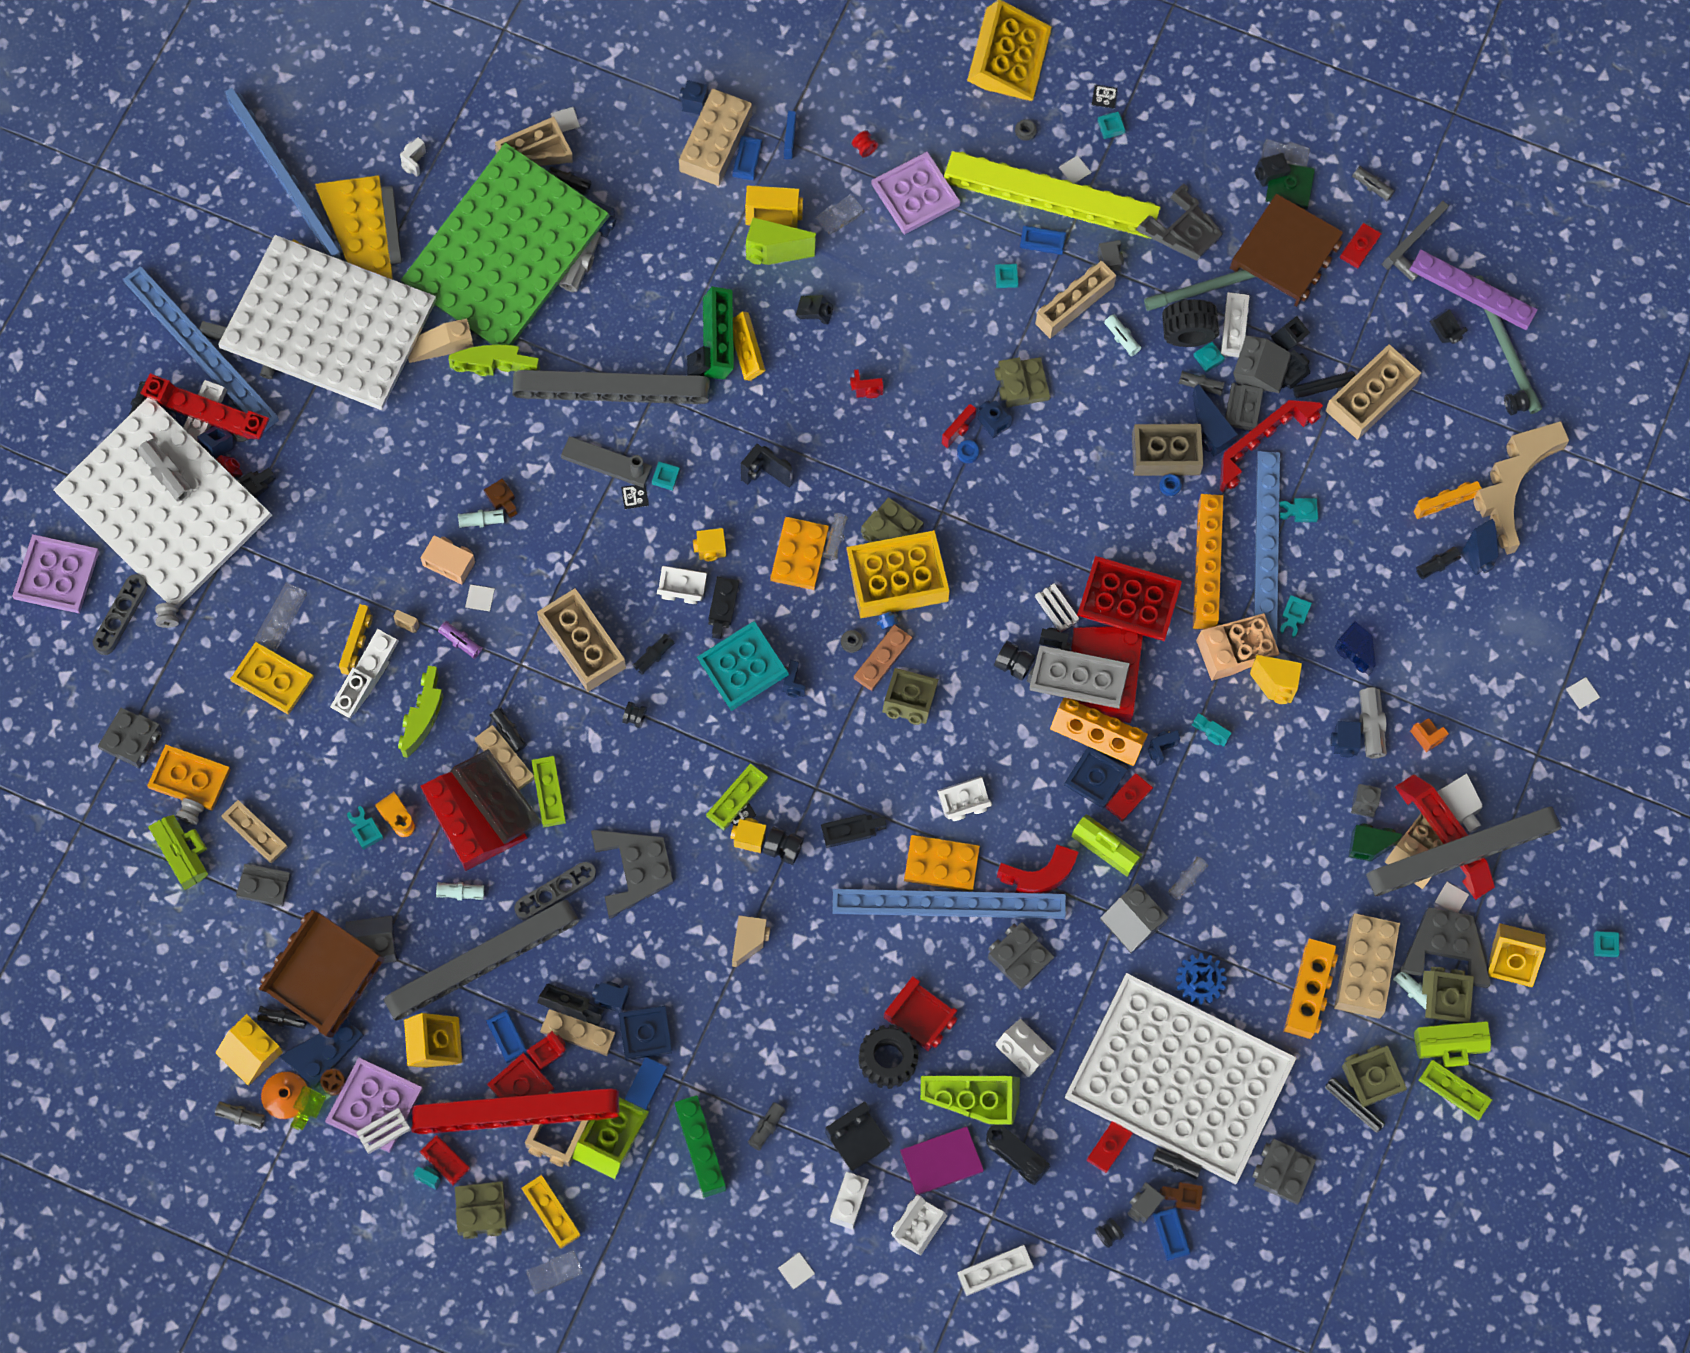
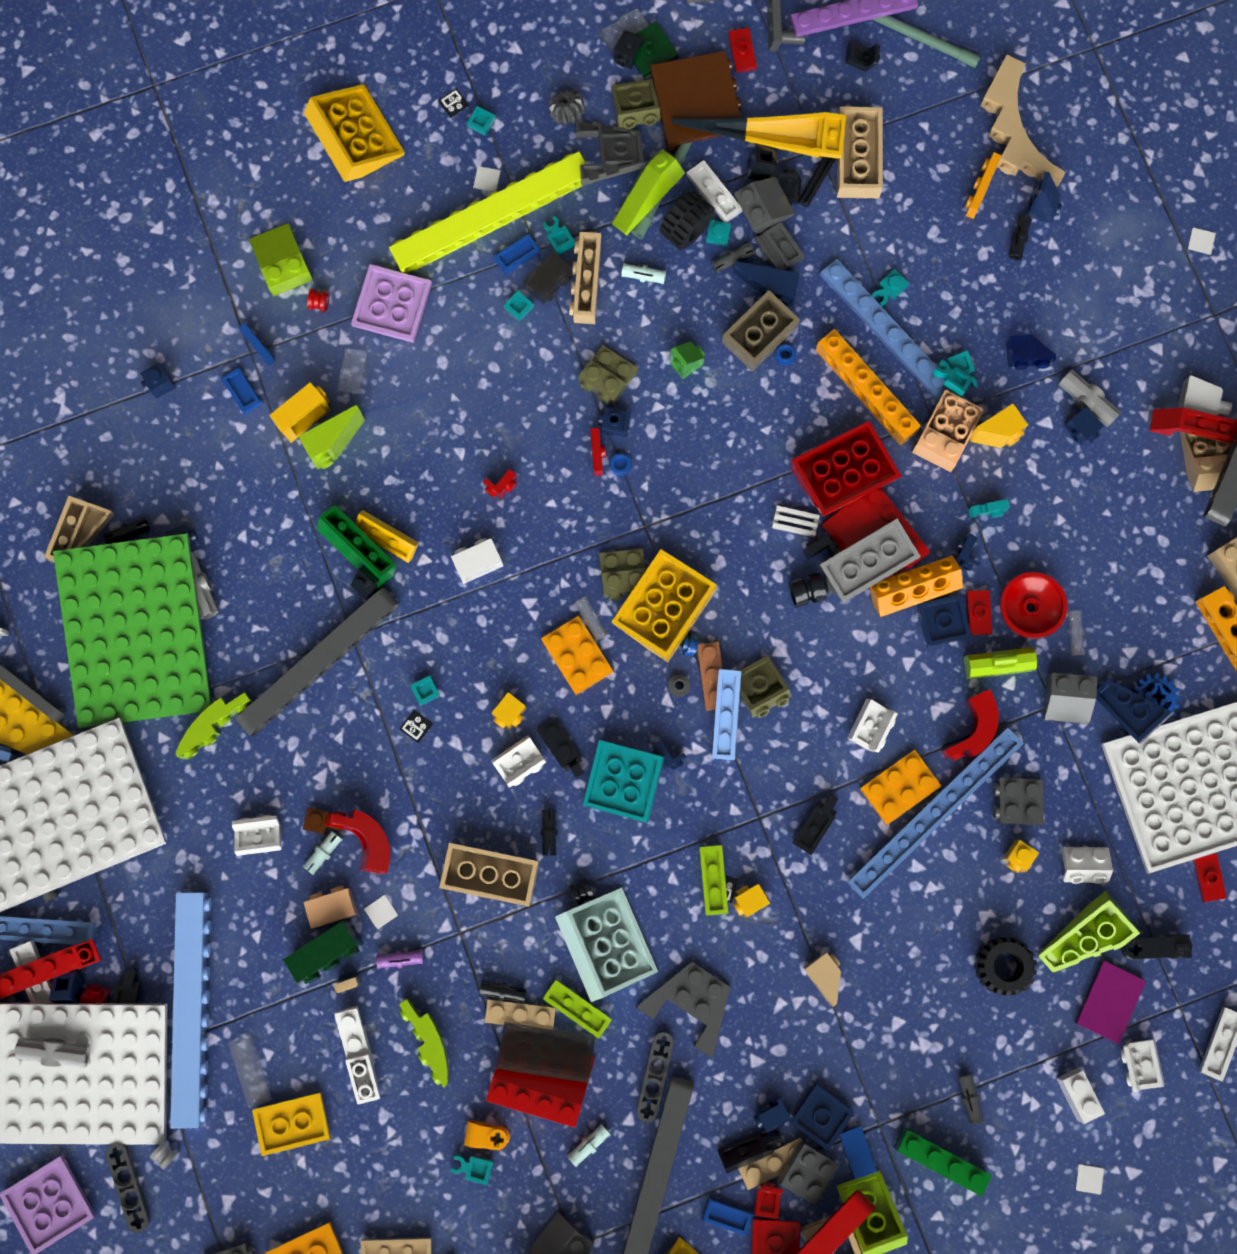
camera: 40 degrees left, 10 degrees up
(282, 536) = (190, 1010): none -> light blue brick
(355, 639) = (324, 1034): yellow plate -> none
(412, 581) = (323, 953): none -> dark green brick
(442, 341) = (157, 746): tan slope -> none
(448, 463) = (256, 835): none -> white bracket
(526, 532) = (370, 834): none -> red arch
(566, 119) = (76, 486): white sticker -> none
(594, 1059) = (808, 1173): none -> dark grey plate
(607, 462) = (370, 721): dark grey piece -> none
(615, 766) = (606, 944): none -> light aqua slope
(715, 137) = (203, 397): tan brick -> none
(761, 459) = (487, 610): black bracket -> none
(783, 845) = (782, 884): black wheel -> none
(794, 421) = (476, 560): none -> white brick
(815, 308) = (406, 460): black bracket -> none
(857, 1137) = (1040, 1044): black bracket -> none
(865, 690) = (727, 714): none -> light blue plate
(866, 94) = (280, 260): none -> lime slope
(921, 1014) = (996, 912): red panel -> none
(979, 992) = (1020, 856): none -> yellow brick
(1028, 125) = (423, 175): dark grey plate -> none
(1047, 275) = (548, 278): none -> clear smoke brick
(1085, 254) = (559, 237): none -> teal plate
(1092, 420) = (686, 358): none -> bright green slope
(1110, 255) = (579, 221): dark grey brick -> none
(1171, 967) = (1134, 712): none -> dark blue wing
(1175, 811) = (1045, 597): none -> red dish
(1183, 169) = (566, 107): none -> dark grey gear
(1190, 277) = (649, 188): none -> lime wedge
(1237, 212) = (636, 103): none -> olive plate
(1279, 613) = (954, 378): none -> teal plate
(1302, 411) = (816, 306): red slope -> none
(1342, 340) = (804, 133): none -> yellow plate
(1365, 800) = (1139, 459): dark grey brick -> none
(1369, 843) = (1172, 487): dark green slope -> none
(1428, 734) = (1133, 371): orange panel -> none
(1516, 402) = (960, 69): black wheel -> none

